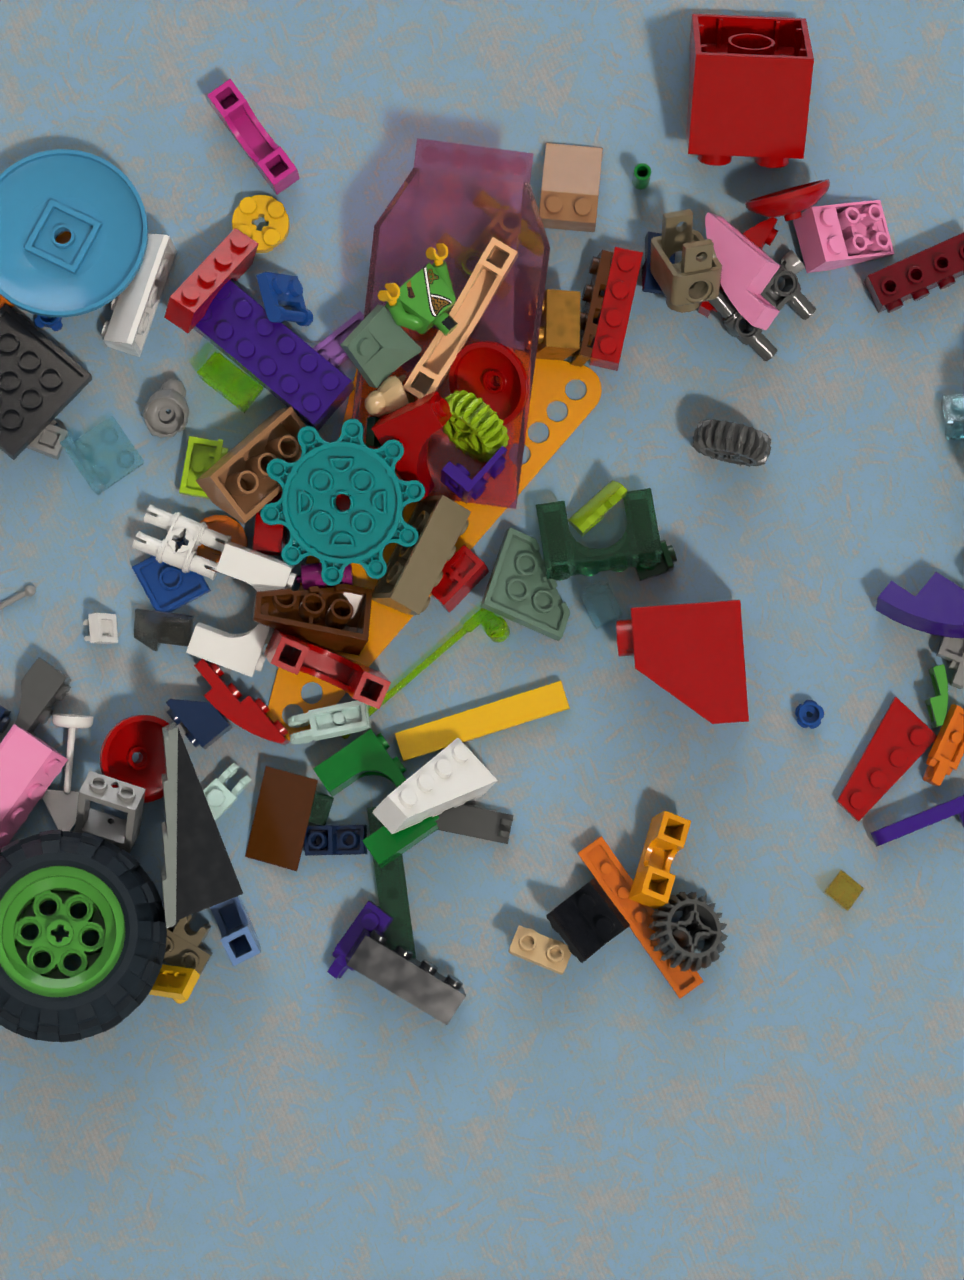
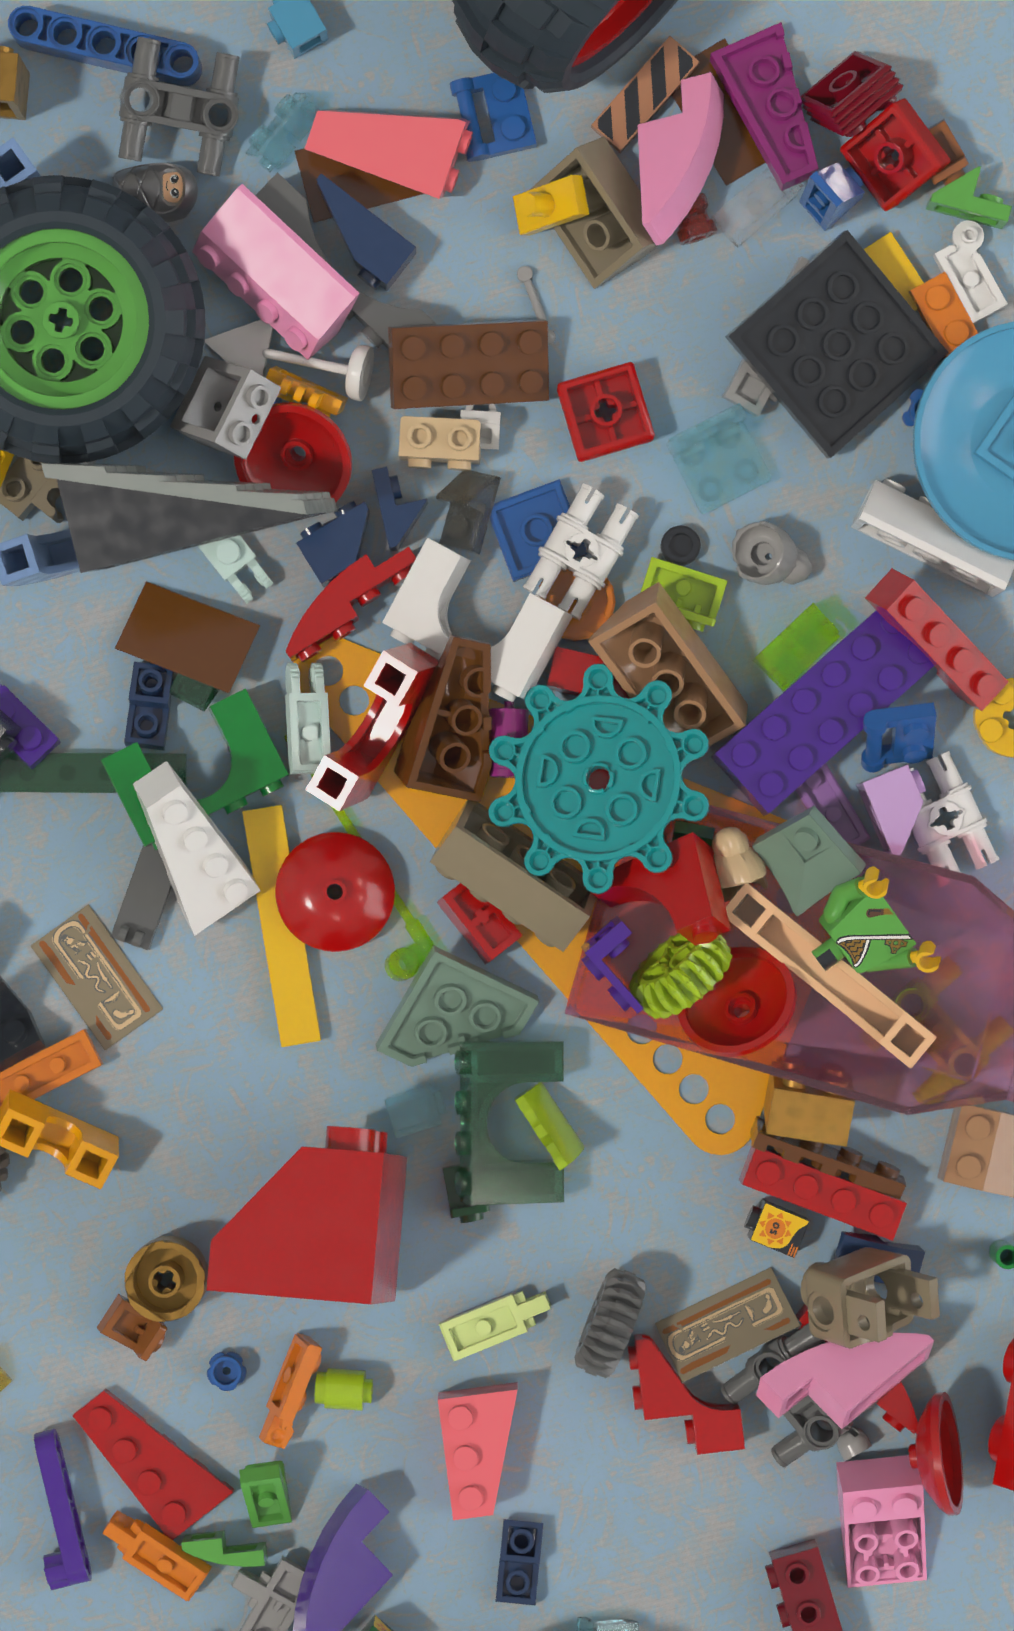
camera: 90 degrees right, 5 degrees up
(56, 641) = (468, 364): none -> reddish brown plate
(61, 533) = (618, 389): none -> red brick
(91, 755) = (303, 390): none -> light orange hinge
(115, 654) = (440, 441): none -> tan bracket
(168, 474) = (680, 545): none -> black tile
(175, 680) = (399, 518): none -> dark blue slope
(322, 256) = (966, 824): none -> white pin
(334, 295) = (893, 805): none -> lavender slope
(456, 705) = (365, 885): none -> red dish
(538, 851) = (96, 977): none -> dark tan sticker
(646, 337) = (776, 1227): none -> brick
(721, 362) = (727, 1324): none -> dark tan sticker
(745, 528) = (492, 1323): none -> yellowish green hinge
(764, 759) = (144, 1285): none -> pearl gold brick
(777, 399) = (663, 1395): none -> red arch
(788, 785) = (132, 1329): none -> dark orange bracket
(809, 627) = (343, 1389): none -> lime brick
(815, 666) = (290, 1390): none -> orange hinge
(834, 526) = (475, 1444): none -> coral wedge
(893, 672) = (266, 1493): none -> bright green slope
(913, 486) = (519, 1562): none -> dark blue slope

